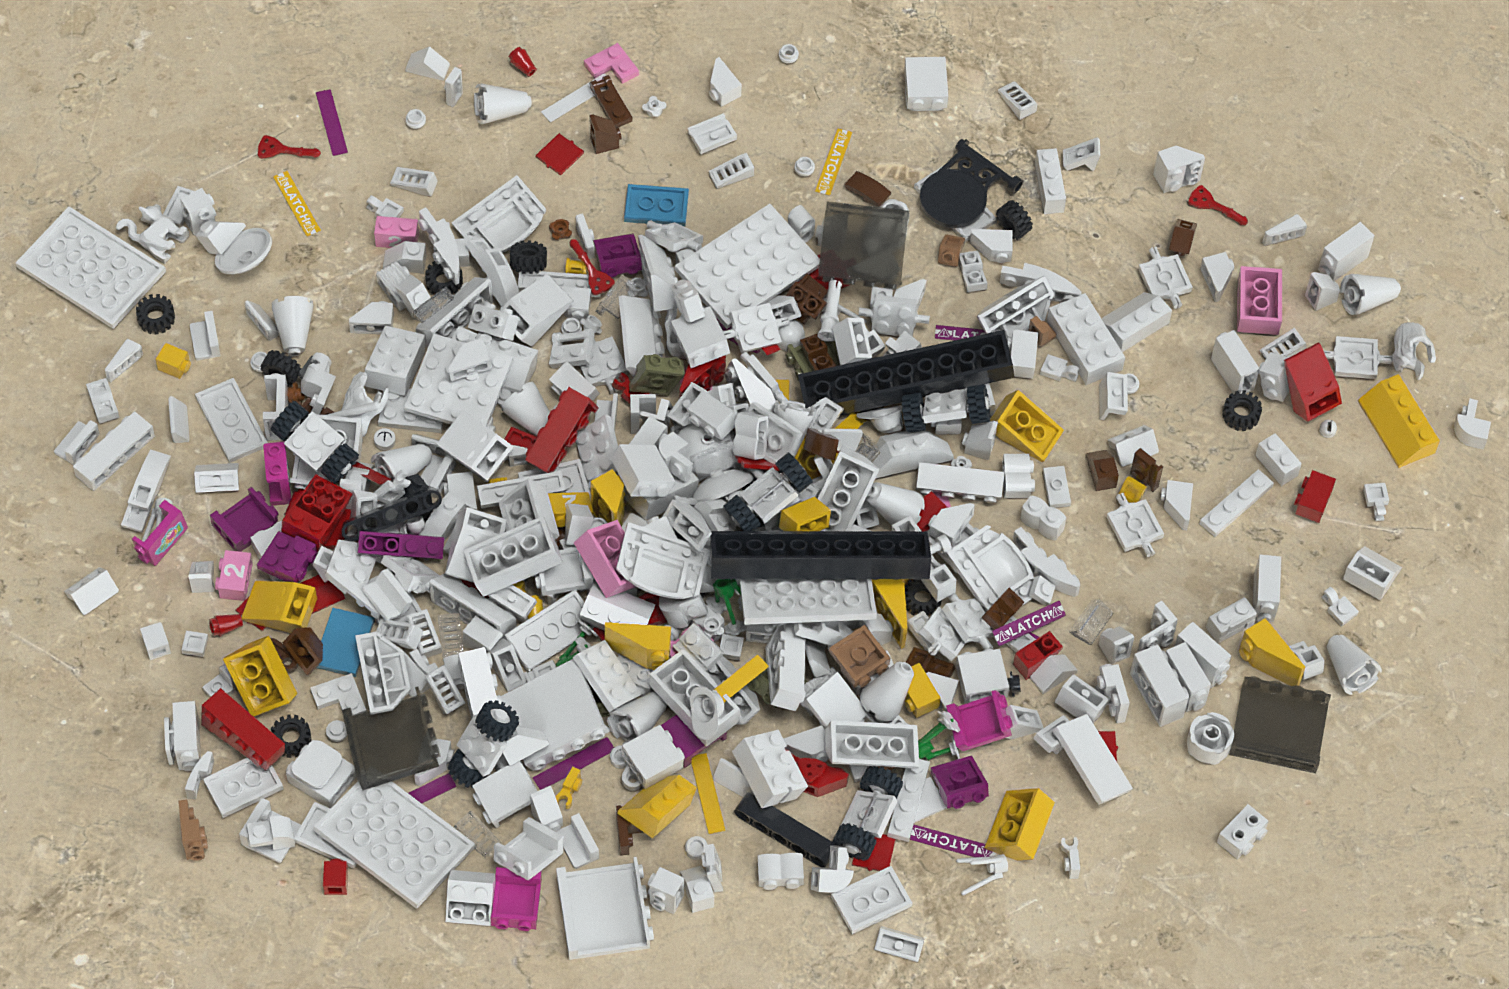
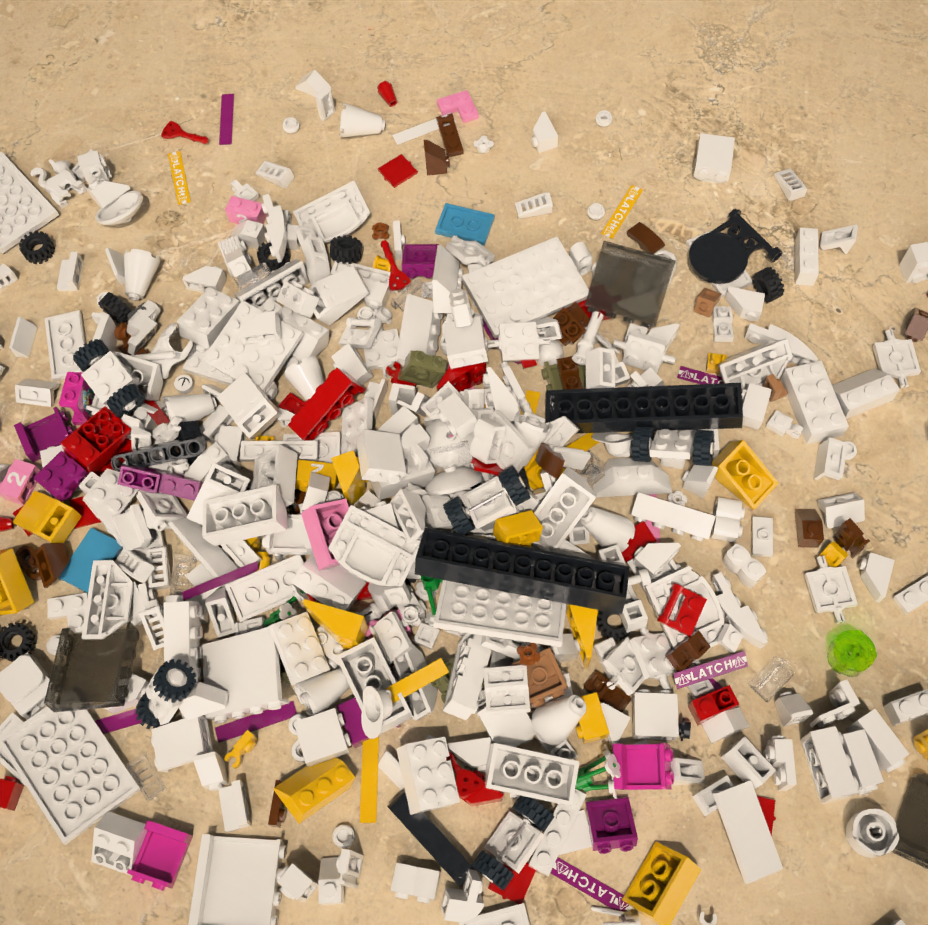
camera: 20 degrees right, 5 degrees up
(173, 361) = (35, 287): yellow brick -> none
(504, 627) = (221, 580): none -> magenta sticker
(530, 850) = (182, 810): white panel -> none
(712, 133) = (525, 172): white plate -> none
(831, 671) = (506, 690): none -> white slope
(848, 637) = (532, 658): none -> dark orange plate
(970, 315) = (713, 361): none -> yellow tile
(995, 570) = (687, 613): none -> red plate
(1165, 581) = (857, 643): none -> clear neon green brick

